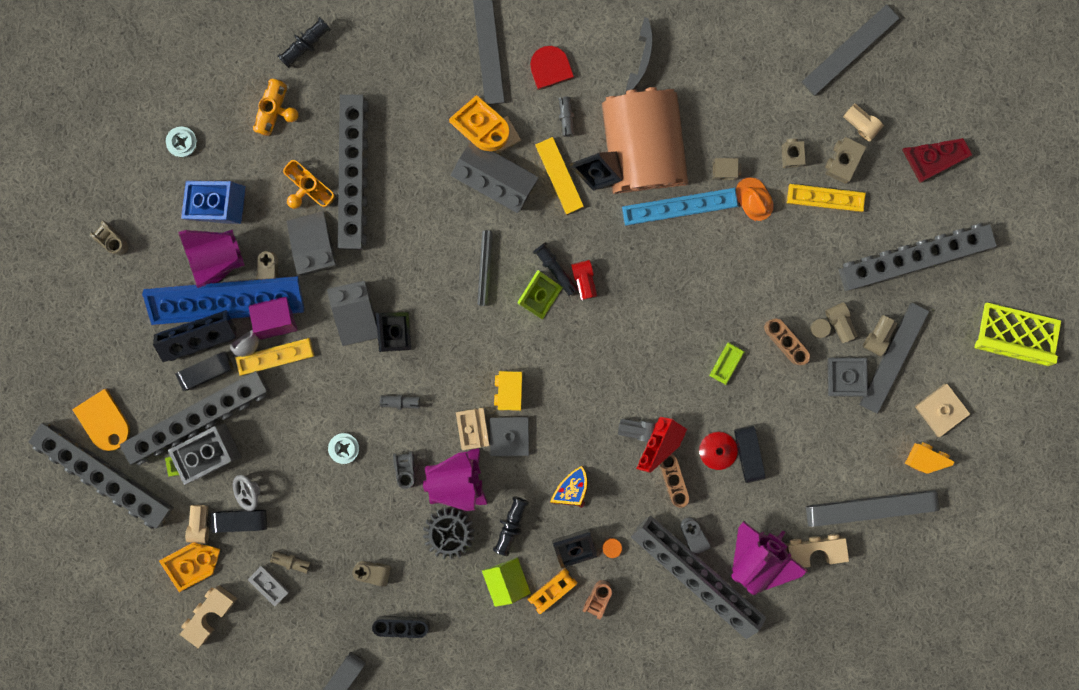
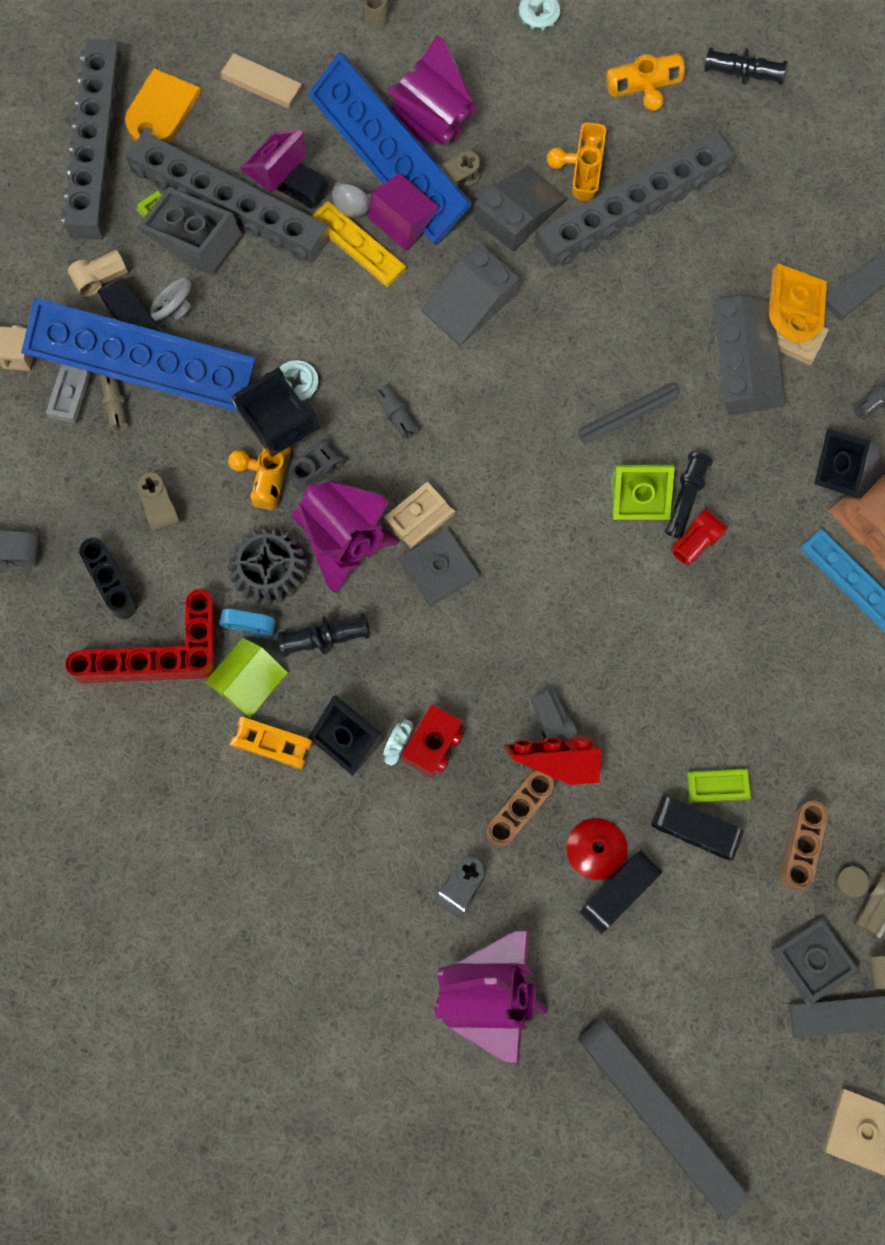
camera: 60 degrees right, 15 degrees down
(122, 346) = (261, 81): none -> tan tile
(165, 341) = (359, 160): black brick -> none
(190, 377) = (275, 158): none -> magenta slope
(190, 564) = (42, 281): light orange tile -> none
(213, 201) = (497, 79): blue slope -> none
(273, 533) = (136, 354): none -> blue plate
(361, 475) = (275, 412): none -> black panel
(380, 488) = (265, 478): none -> light orange piece
(393, 331) = (477, 351): black slope -> none
(465, 627) = (156, 656): none -> red beam
(476, 563) = (247, 622): none -> dark azure beam
(509, 390) = (497, 529): yellow brick -> none
(559, 175) = (802, 433): yellow tile -> none
(572, 489) = (421, 685): shield -> none
(596, 602) = (294, 810): nougat piece -> none
(597, 523) = (398, 742): none -> light aqua gear
(612, 548) = (376, 786): orange tile -> none
(614, 513) = (437, 724): none -> red brick
(698, 577) = (409, 927): dark grey brick -> none
(742, 391) = (697, 828): none -> black beam
(833, 548) = (571, 1095): tan arch -> none
(926, 460) = (781, 1152): light orange slope -> none

